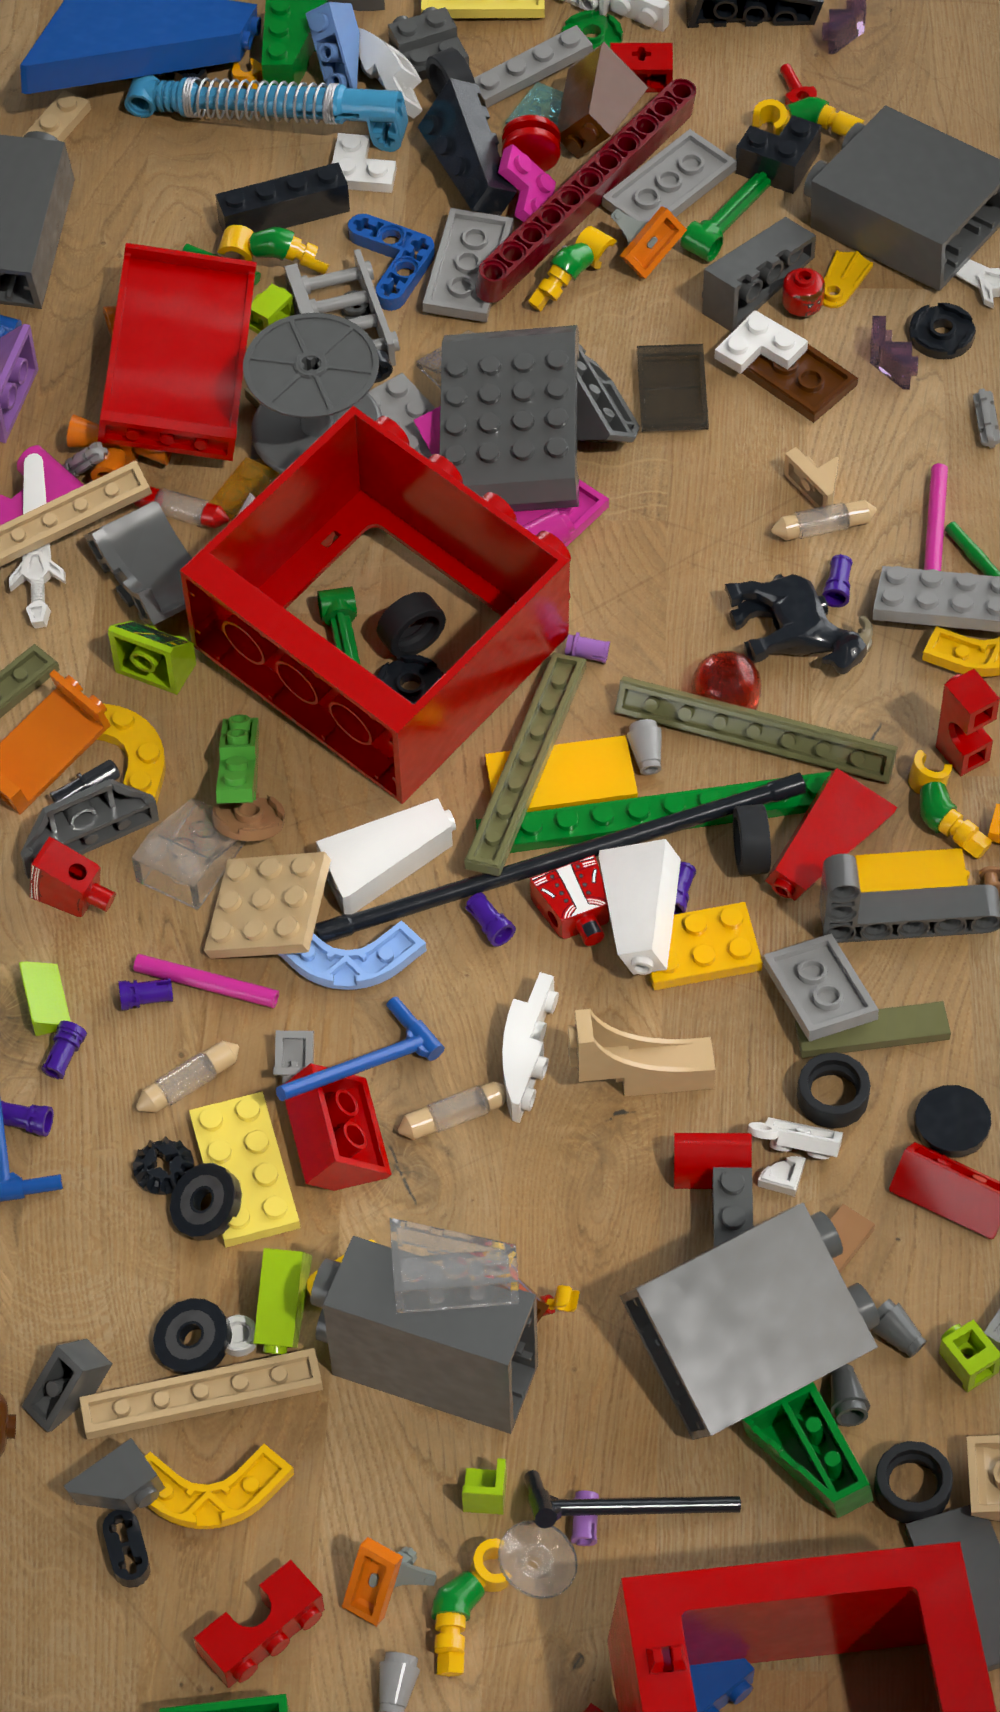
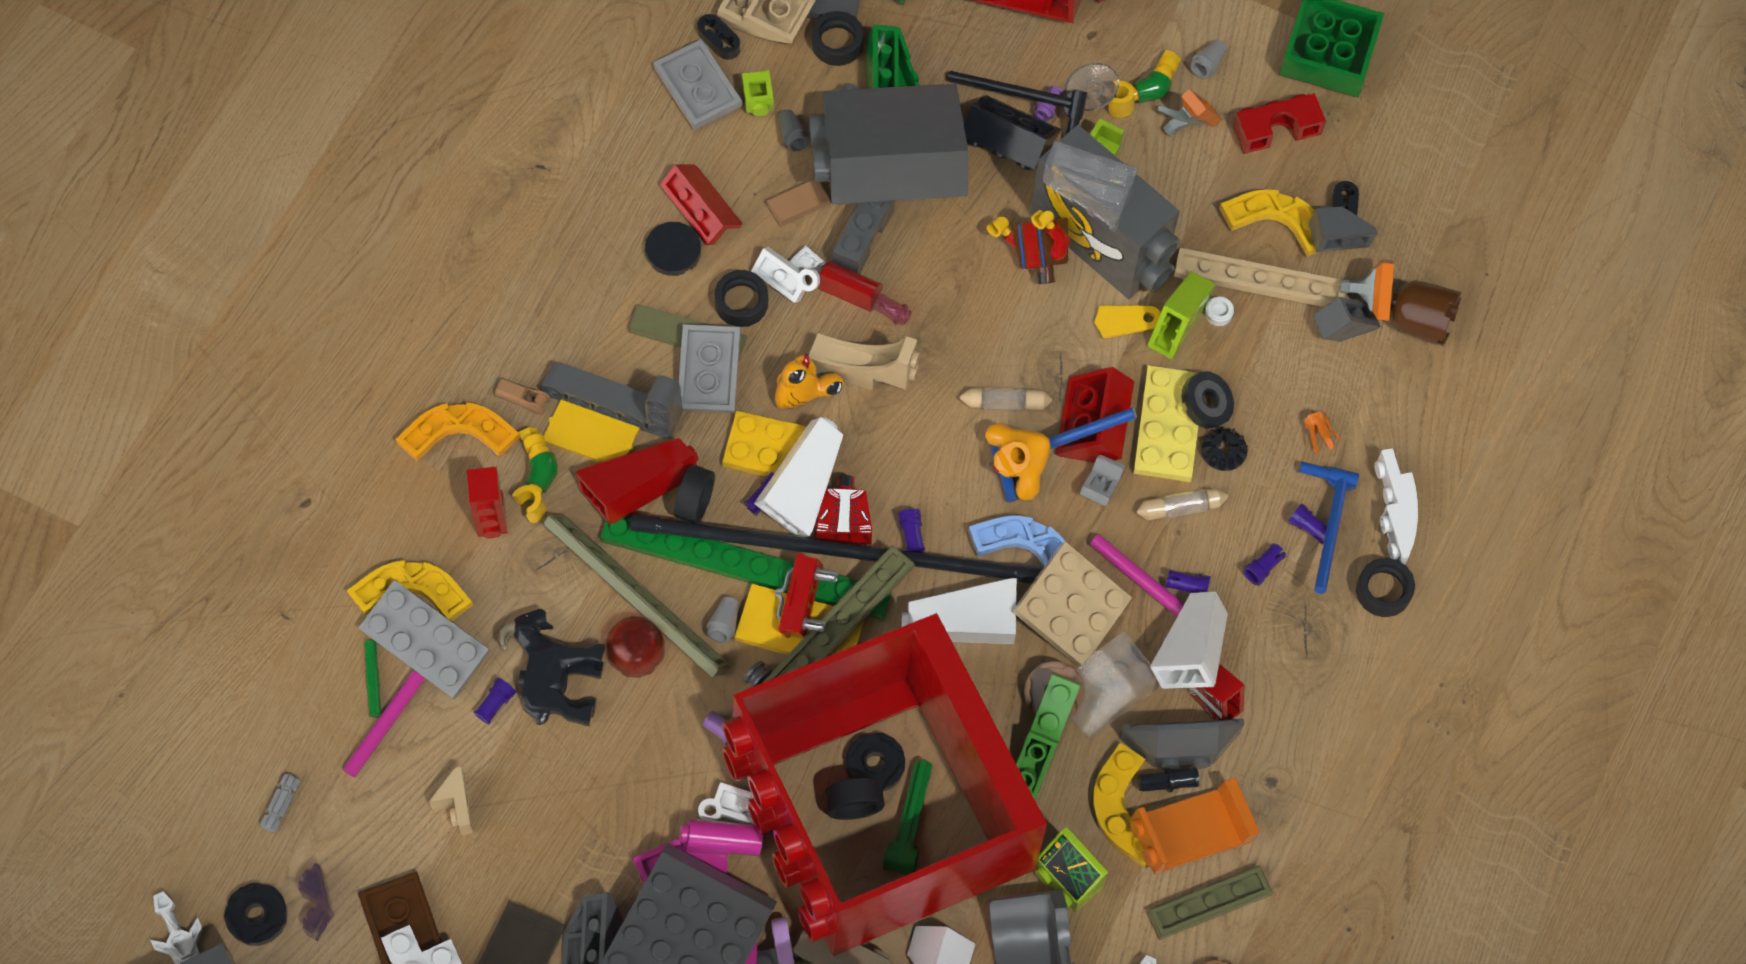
camera: 160 degrees left, 10 degrees up
(43, 1422) = (1374, 288): none -> piece
(44, 996) = (1262, 614): lime slope -> none
(60, 1235) = (1318, 423): none -> orange piece
(107, 899) = (1193, 644): none -> white slope
(182, 1319) = (1262, 306): black tile -> none
(405, 1027) = (1021, 455): none -> light orange head
(524, 1045) = (939, 418): white slope -> none
(573, 782) = (801, 596): none -> red piece
(578, 708) = (757, 674): none -> dark grey bush
(615, 1450) = (1009, 132): none -> black slope
(646, 1156) = (892, 309): none -> clear pink pin
(705, 1008) = (800, 384): none -> light orange head
(824, 520) = (472, 762): piece -> none

